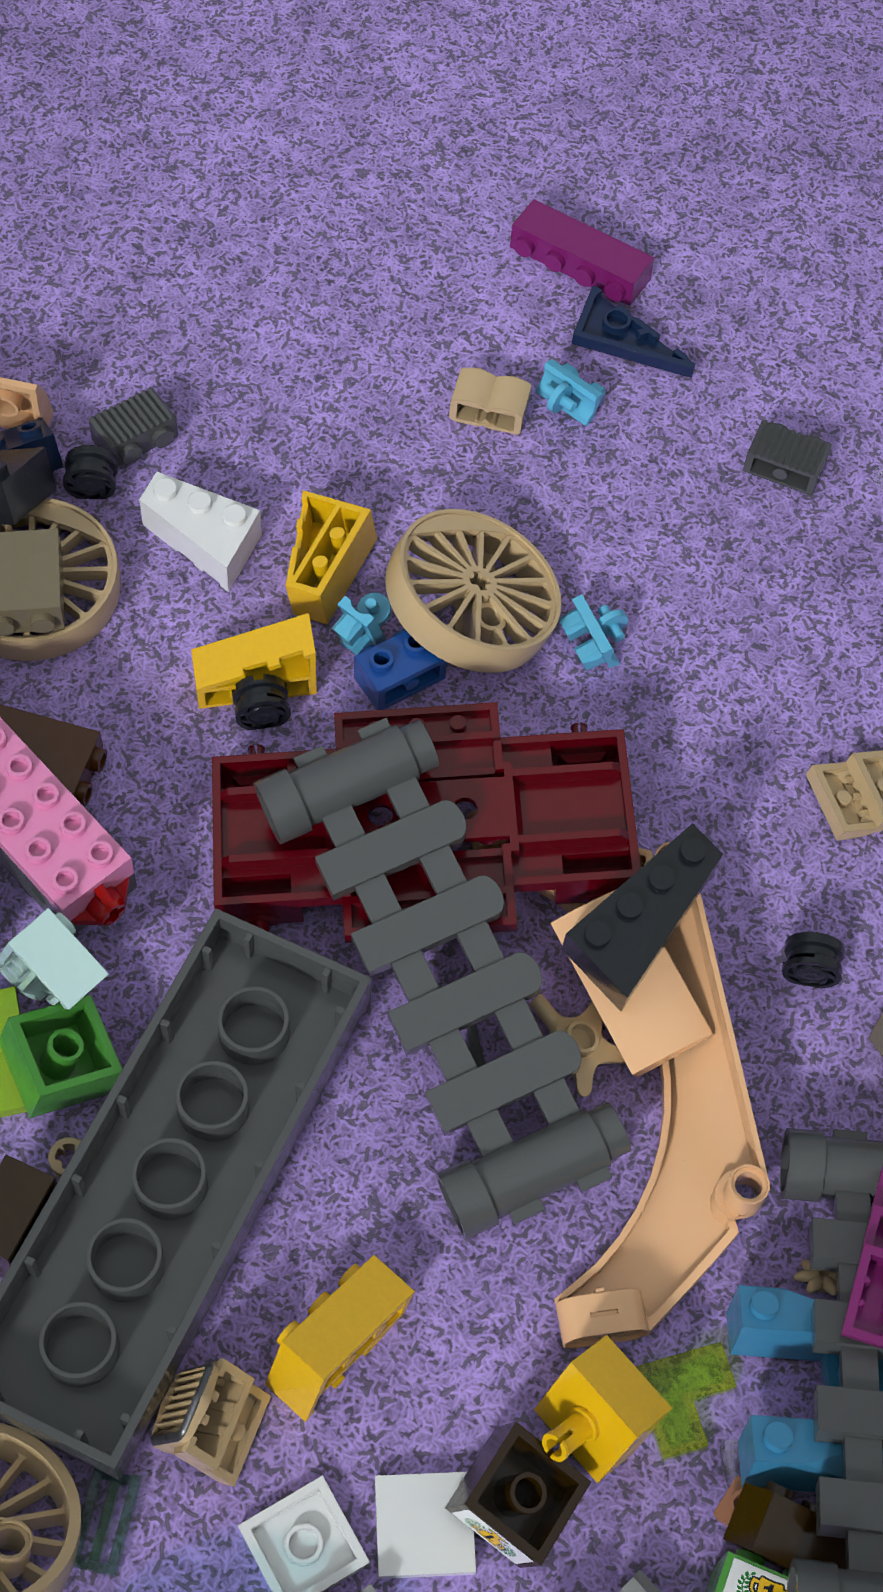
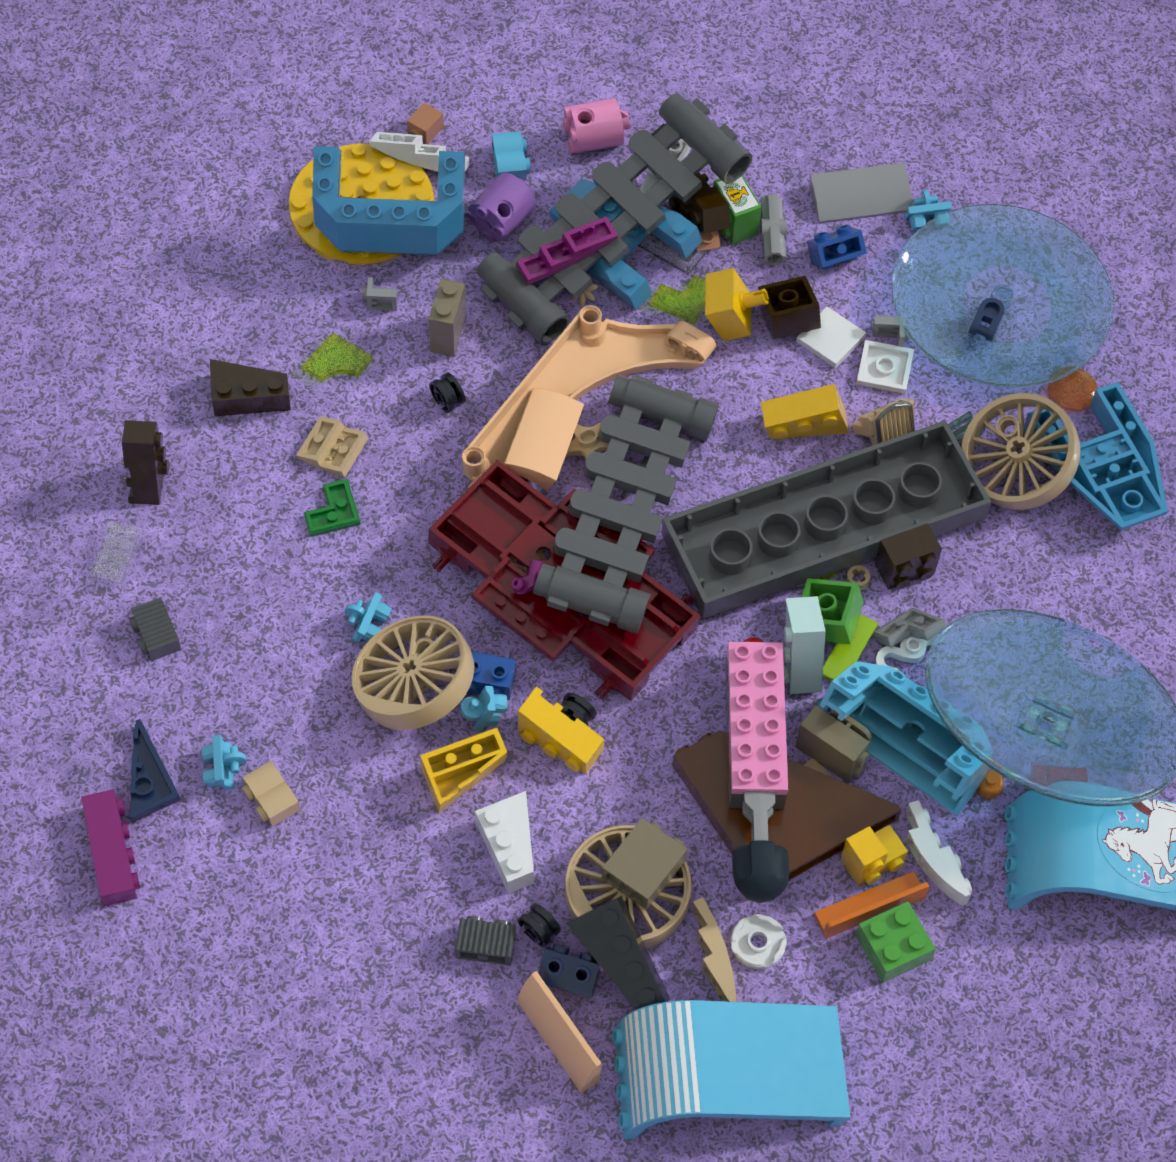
camera: 135 degrees left, 0 degrees up
(448, 753) = (527, 583): none -> magenta arm
(637, 920) = (519, 435): black wedge -> none
(762, 730) = (339, 513): none -> green tile

